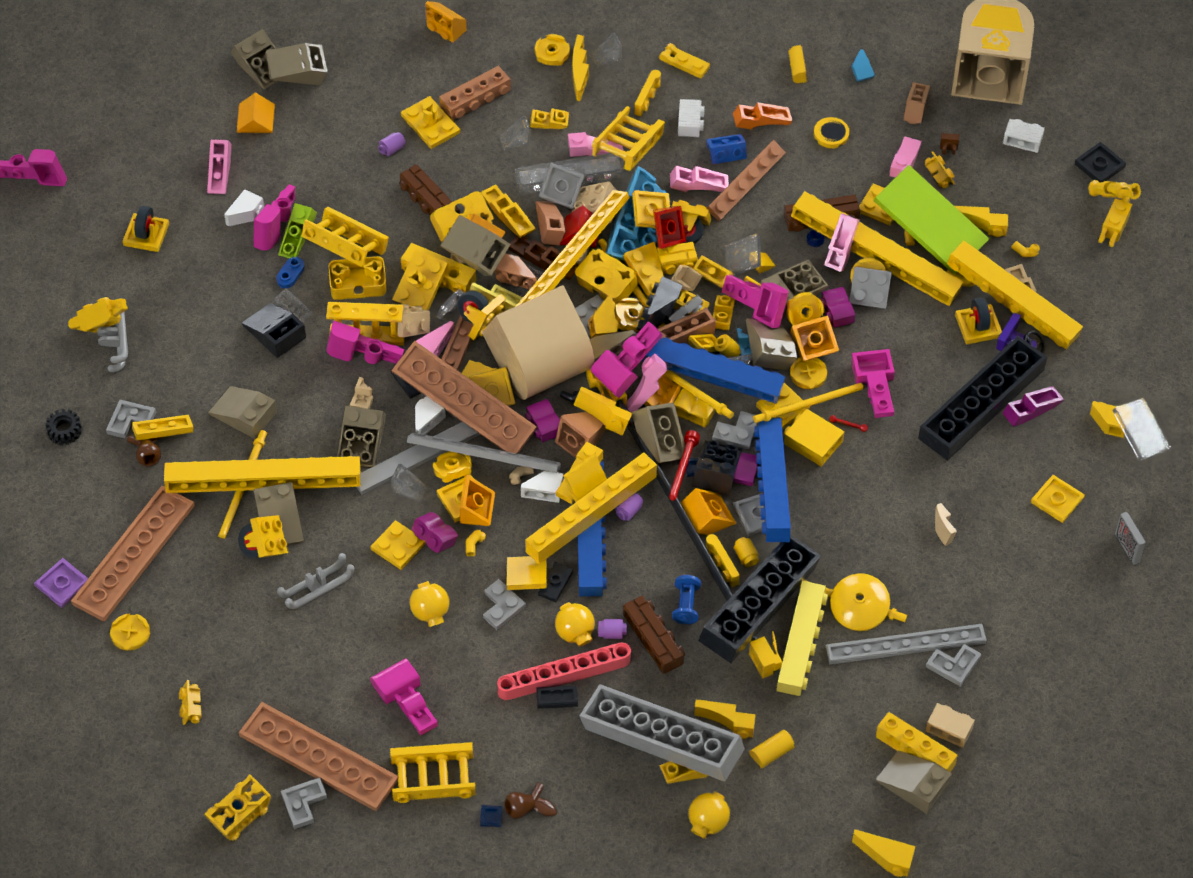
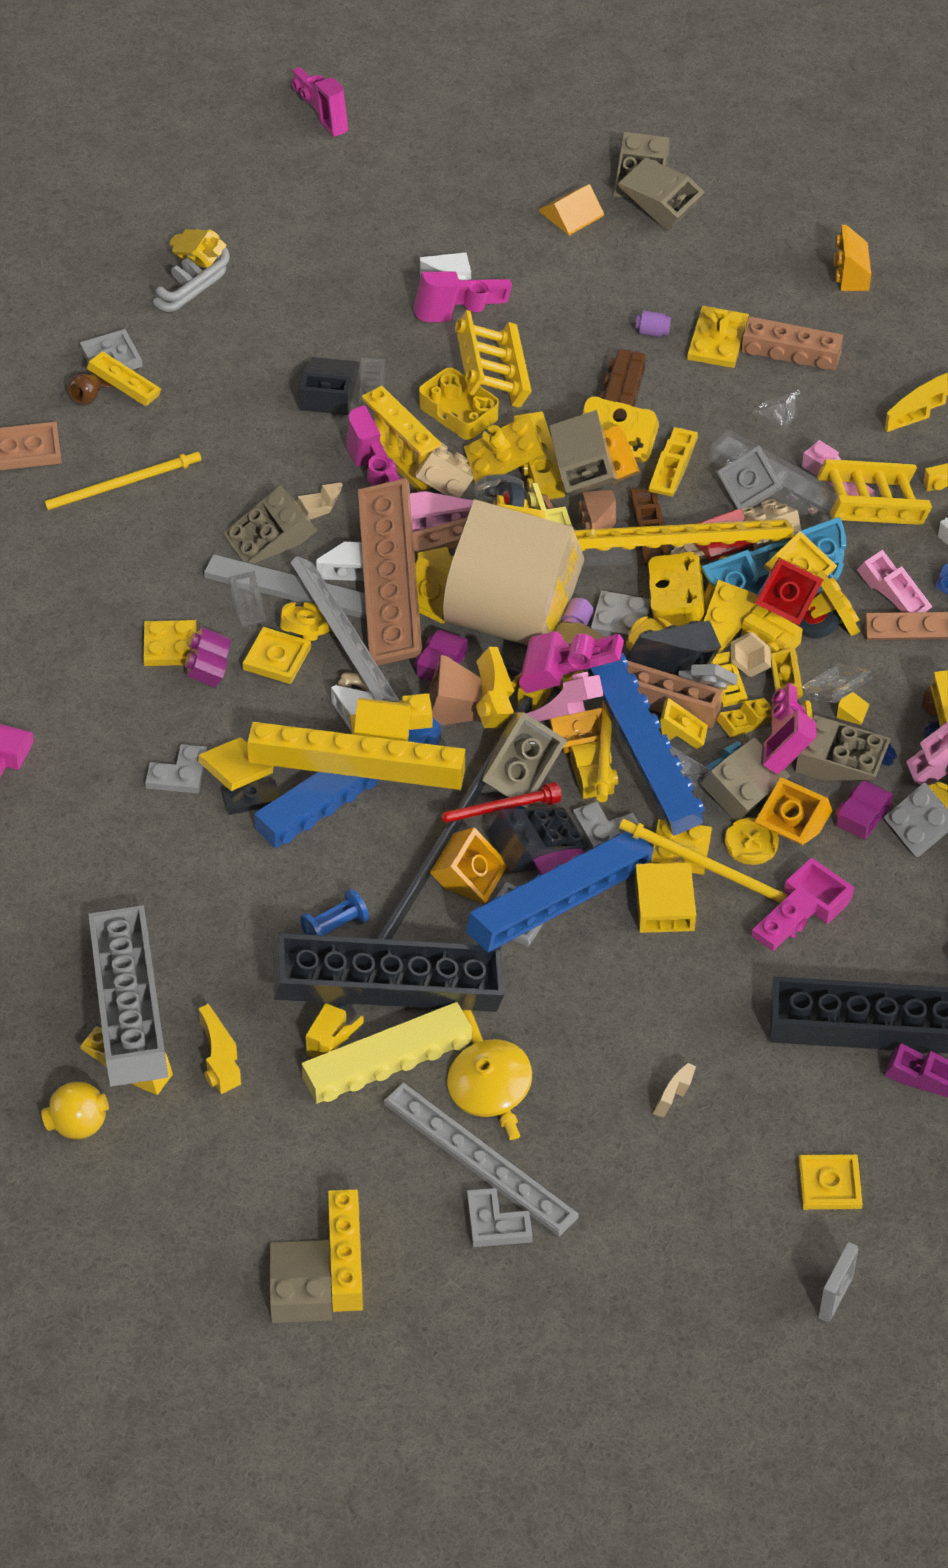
camera: 50 degrees right, 5 degrees down
(67, 435) = (54, 322): black tyre -> none
(146, 230) = (342, 218): yellow plate -> none
(219, 166) = (479, 220): bright pink slope -> none
(244, 410) = (209, 427): dark tan slope -> none
(255, 474) = (141, 483): yellow brick -> none
(263, 537) = (67, 530): yellow plate -> none
(281, 501) = (110, 527): dark tan slope -> none
(291, 271) = (413, 354): blue plate -> none
(292, 239) = (483, 314): lime slope -> none
(317, 583) = (56, 609): light grey piece -> none
(429, 603) = (114, 706): yellow brick -> none
(476, 503) = (271, 660): light orange slope -> none
(476, 536) = (231, 697): yellow arm -> none
(547, 57) = (916, 376): yellow plate -> none
(550, 223) = (695, 501): nougat slope -> none
(554, 120) = (831, 422): yellow slope -> none
(557, 697) = (106, 887): black plate -> none
(570, 664) = (143, 872): coral beam -> none
(575, 623) = (208, 842): yellow brick -> none
(603, 319) = (615, 616): yellow slope -> none
(612, 628) = (235, 878): medium lavender brick -> none
(629, 507) = (405, 795): medium lavender brick -> none
(653, 634) = (263, 919): reddish brown brick -> none
(722, 559) = (420, 914): yellow plate -> none
(727, 346) = (699, 745): yellow brick -> none
(746, 552) = (452, 929): yellow brick -> none
(772, 748) = (219, 1119): yellow brick -> none
(798, 303) = (830, 768): yellow plate -> none
(863, 427) = (731, 936): red hinge -> none
(890, 854) = (178, 1319): yellow slope -> none
(950, 725) = (406, 1266): tan brick -> none

